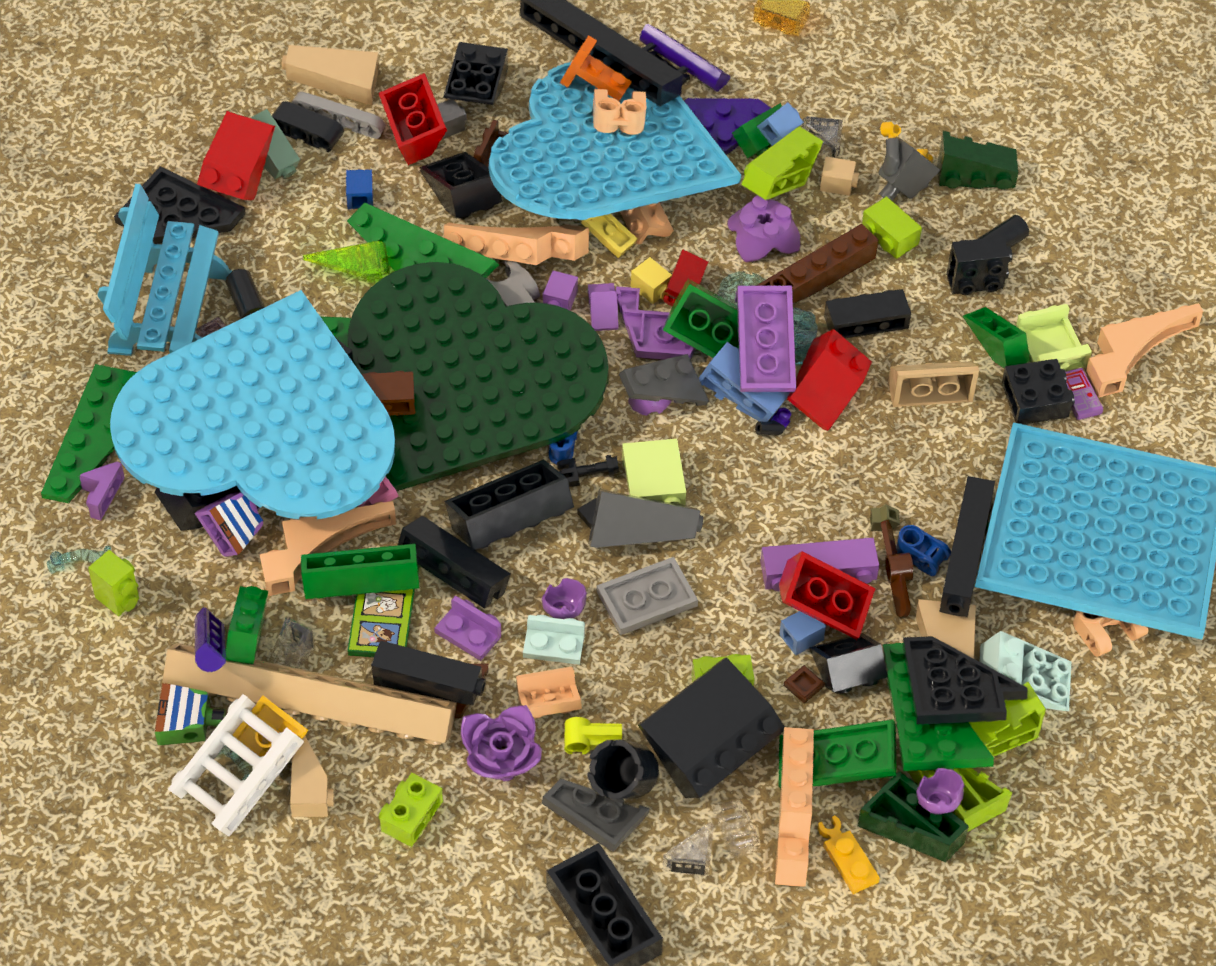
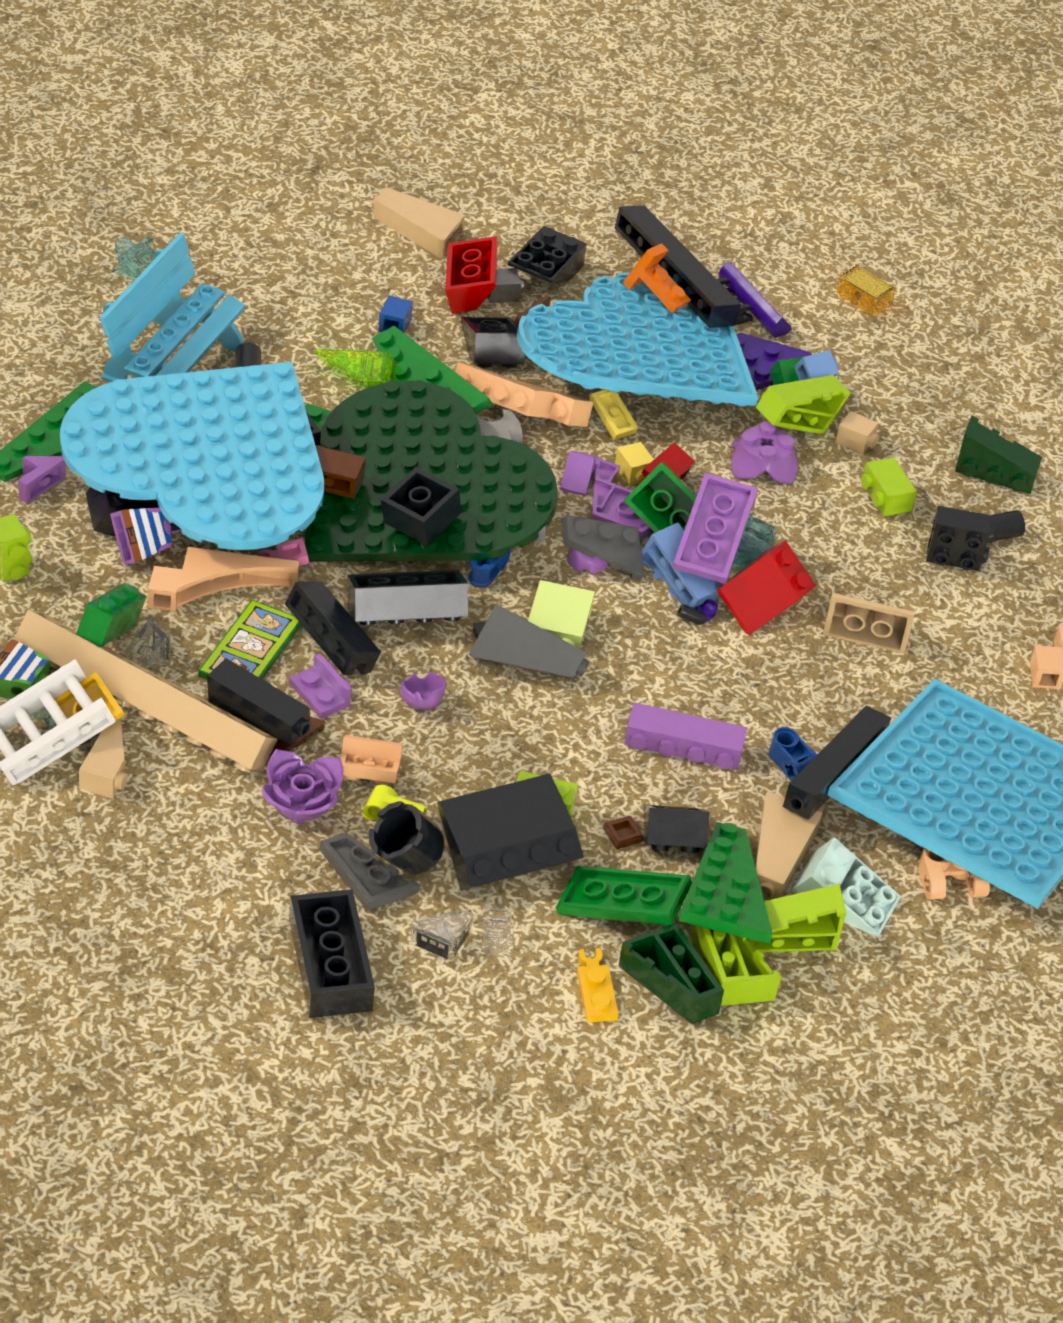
camera: 15 degrees right, 10 degrees down
(76, 213) = (129, 259): none -> clear light blue hips
(186, 202) = (227, 274): black wing -> none
(209, 641) = (65, 612): dark purple brick -> none
(237, 156) = (292, 255): red slope -> none
(281, 156) = (328, 257): sand green slope -> none
(307, 126) = (371, 255): black beam -> none
(360, 571) = (239, 605): green brick -> none
(363, 122) = (427, 267): light grey beam -> none
(410, 809) = (191, 813): lime brick -> none
(488, 407) = (421, 506): none -> black brick
(554, 639) = (398, 720): light aqua bracket -> none
(561, 290) = (546, 444): medium lavender brick -> none
(572, 472) = (482, 593): black hinge -> none
(611, 115) = (670, 320): light nougat piece -> none
(647, 221) = (655, 413): light nougat bracket -> none
(647, 596) = (505, 713): light grey plate -> none
(795, 807) = (557, 924): light nougat arch -> none
(801, 632) = (642, 785): medium blue brick -> none
(826, 593) = (677, 755): red slope -> none
(827, 263) = (811, 499): reddish brown slope -> none
(828, 131) = (863, 395): clear slope -> none
(868, 313) = (833, 550): black brick -> none
(884, 513) = (768, 719): olive piece -> none
(898, 570) = (762, 763): reddish brown piece -> none
(904, 167) = (923, 438): dark grey torso -> none
(941, 792) = (707, 949): medium lavender hair -> none
(954, 686) = (765, 865): black wing -> none
(1000, 338) = (954, 607): green slope -> none
(1037, 391) = (971, 659): black brick -> none
(1053, 337) = (1006, 624): yellowish green panel -> none
(1086, 400) = (1014, 677): medium lavender tile -> none

